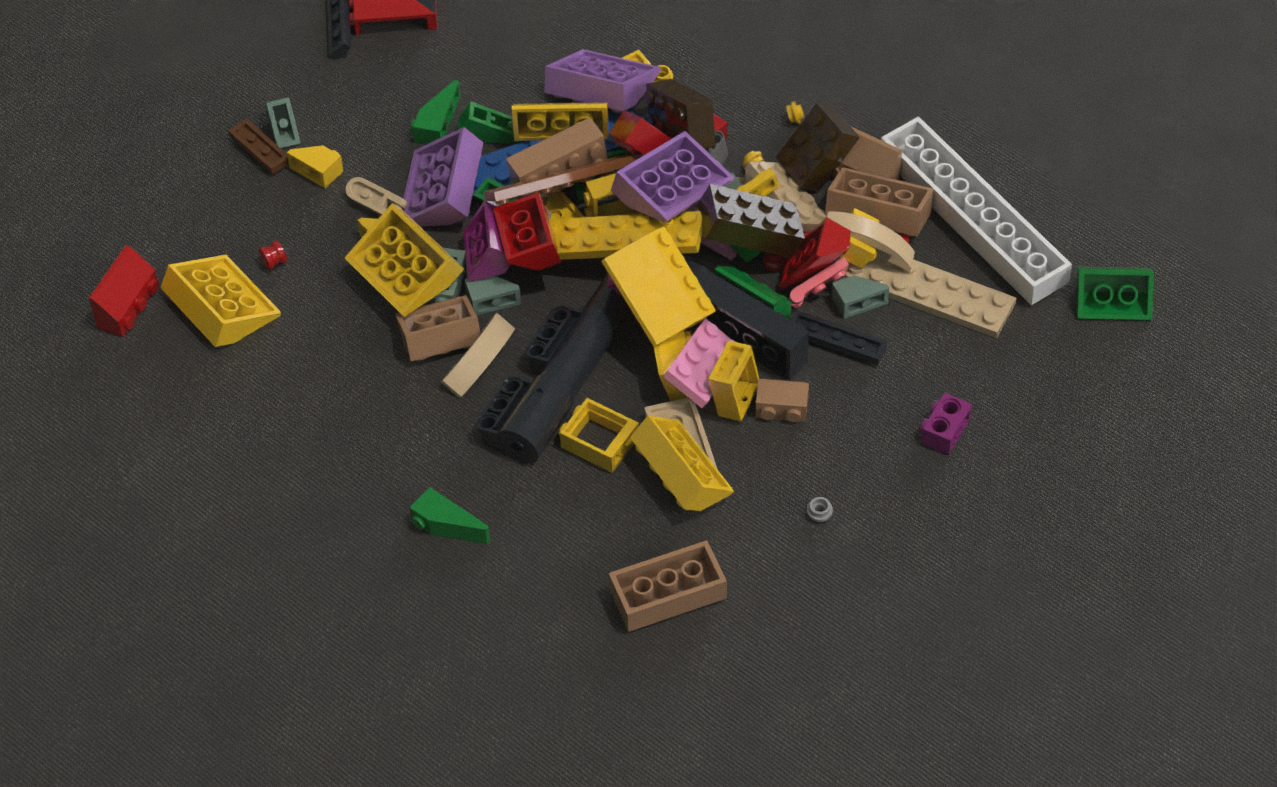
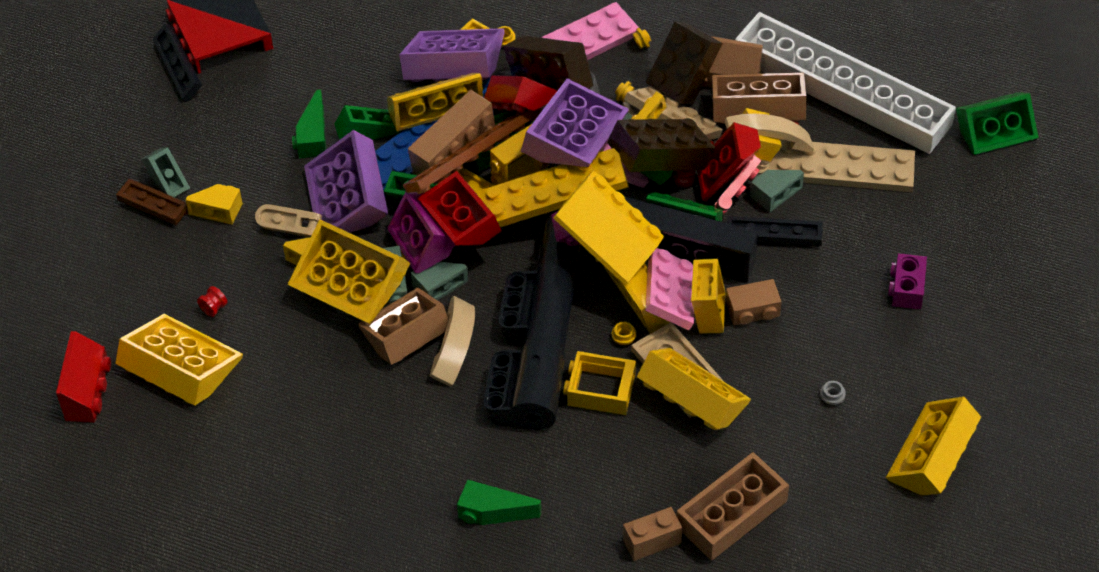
camera: 20 degrees left, 0 degrees up
(581, 589) = (652, 533): none -> medium nougat brick
(644, 389) = (623, 328): none -> yellow plate
(750, 96) = (598, 30): none -> bright pink plate
(894, 589) = (934, 446): none -> yellow slope

